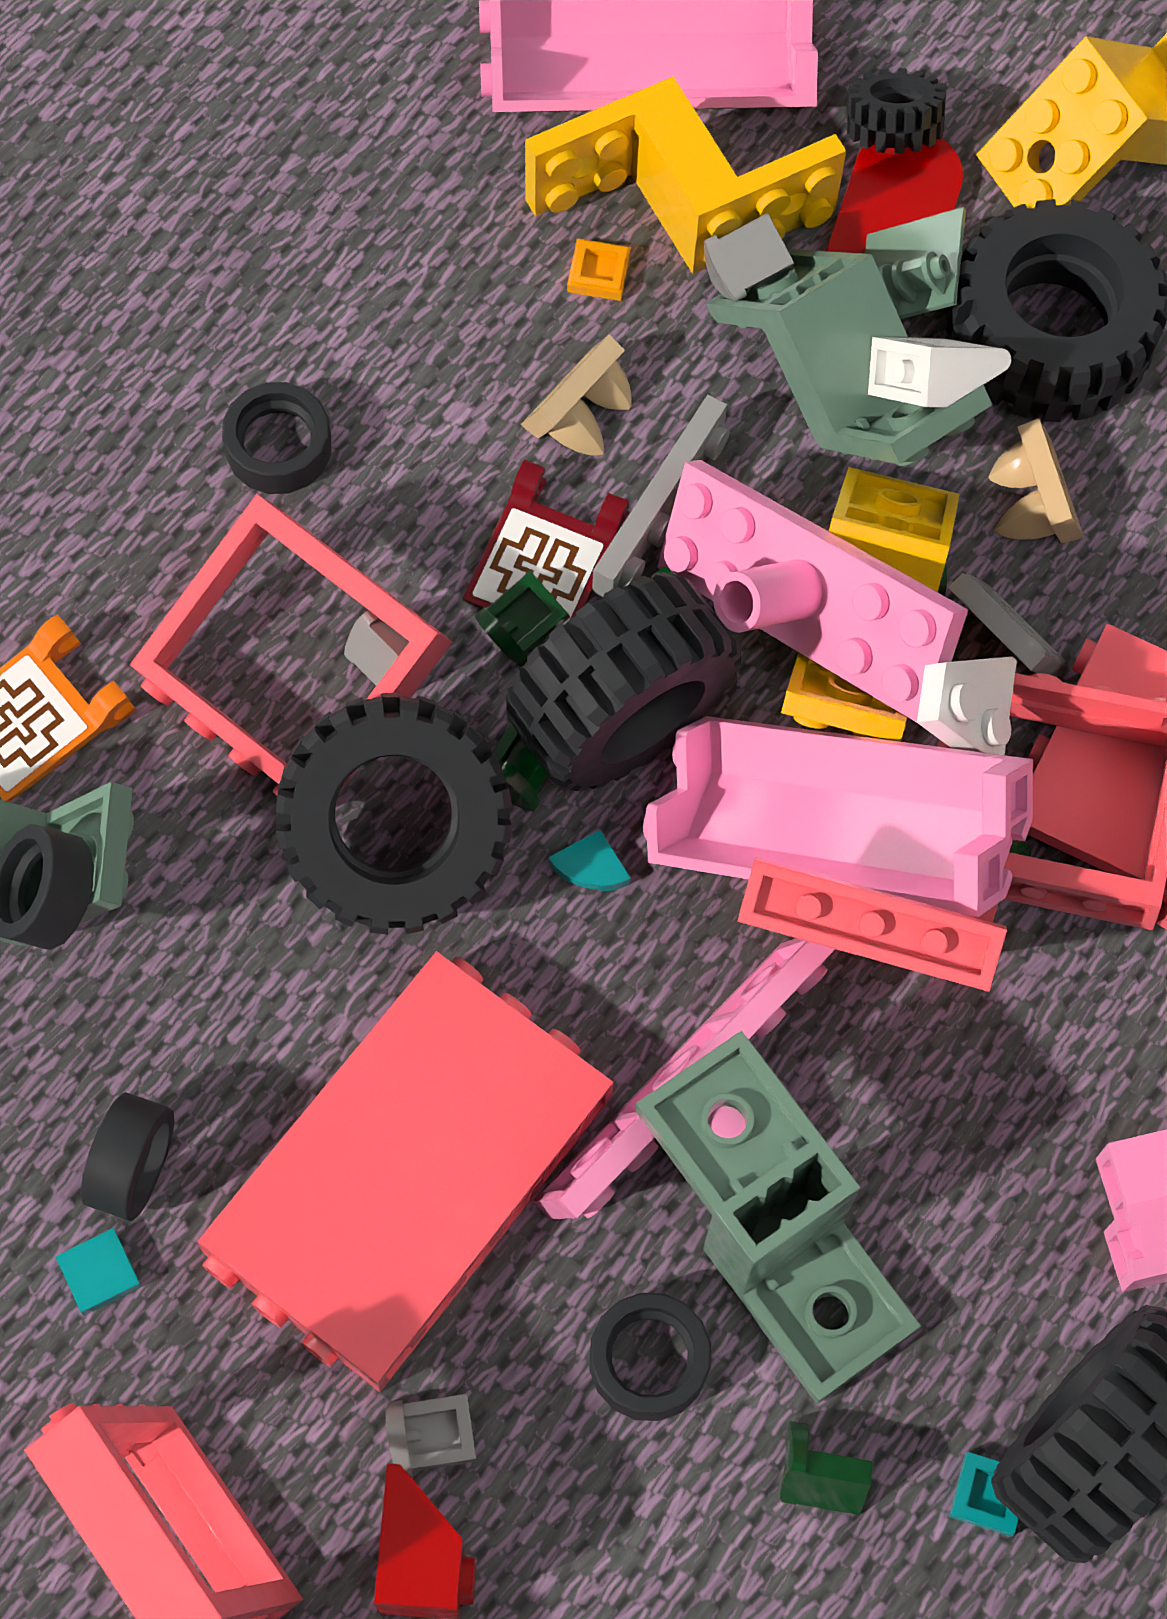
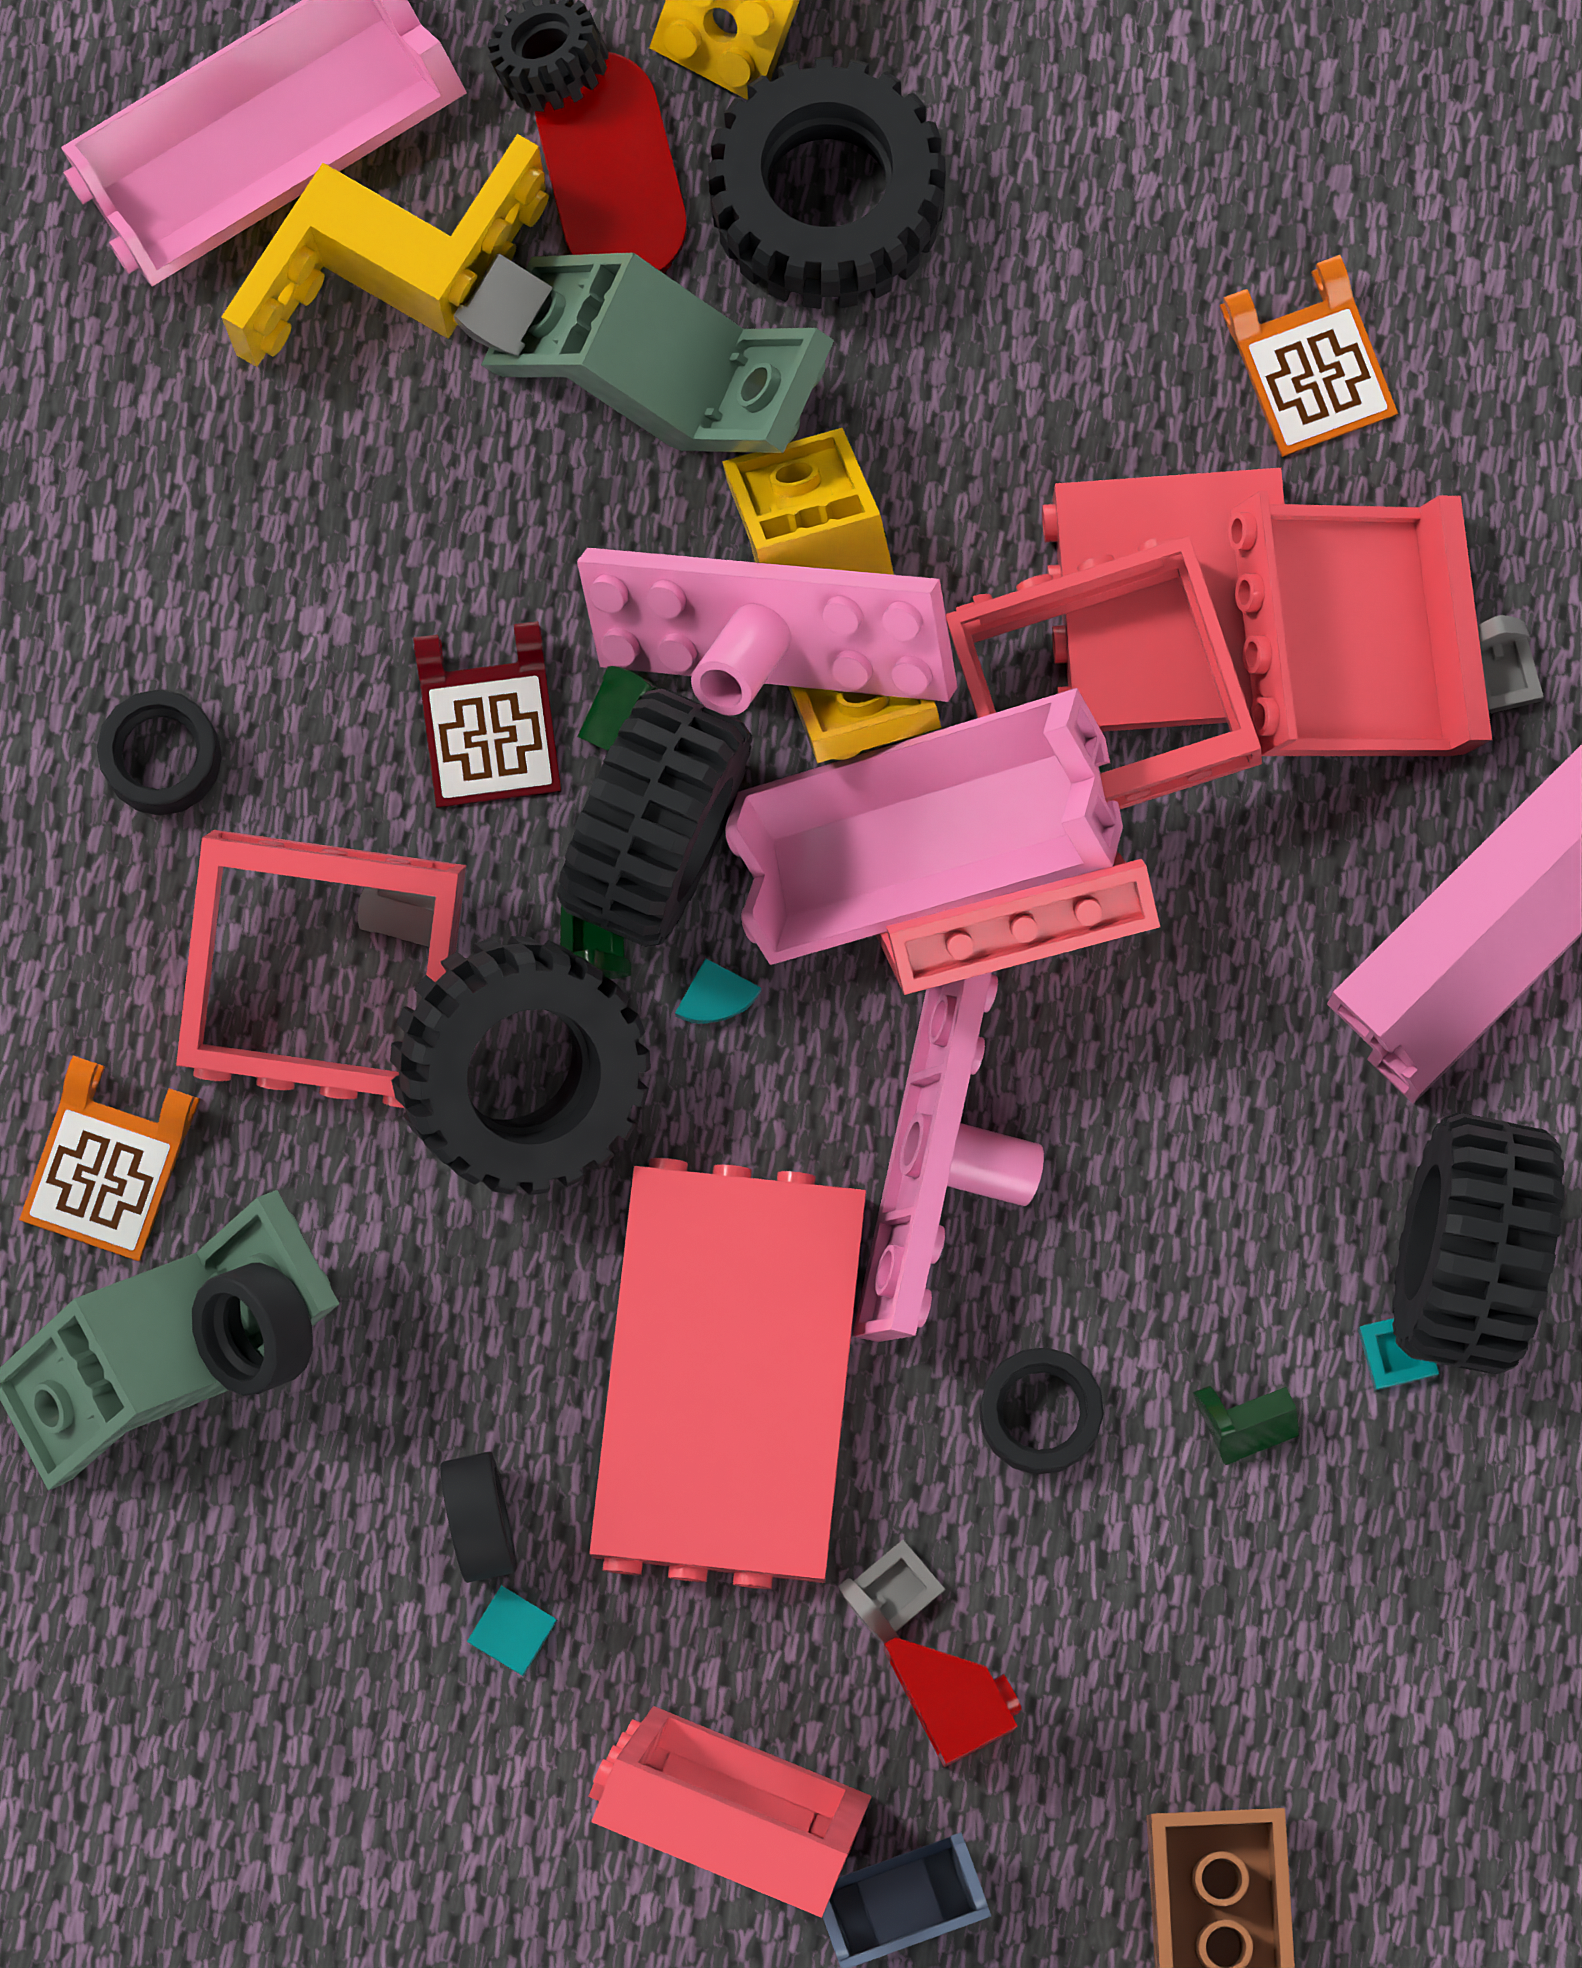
camera: 25 degrees left, 10 degrees up
(522, 618) = (506, 797): dark green tile -> none
(565, 413) = (412, 560): tan tile -> none
(599, 269) = (356, 389): light orange tile -> none
(650, 517) = (567, 625): light grey plate -> none
(778, 1215) = (1085, 1226): sand green bracket -> none
(920, 261) = (668, 215): sand green hinge -> none
(931, 369) = (742, 348): white tile -> none
(969, 703) = (986, 659): white wing -> none
(1007, 625) = (966, 540): light grey tile -> none
(1043, 510) = (932, 391): tan tile -> none

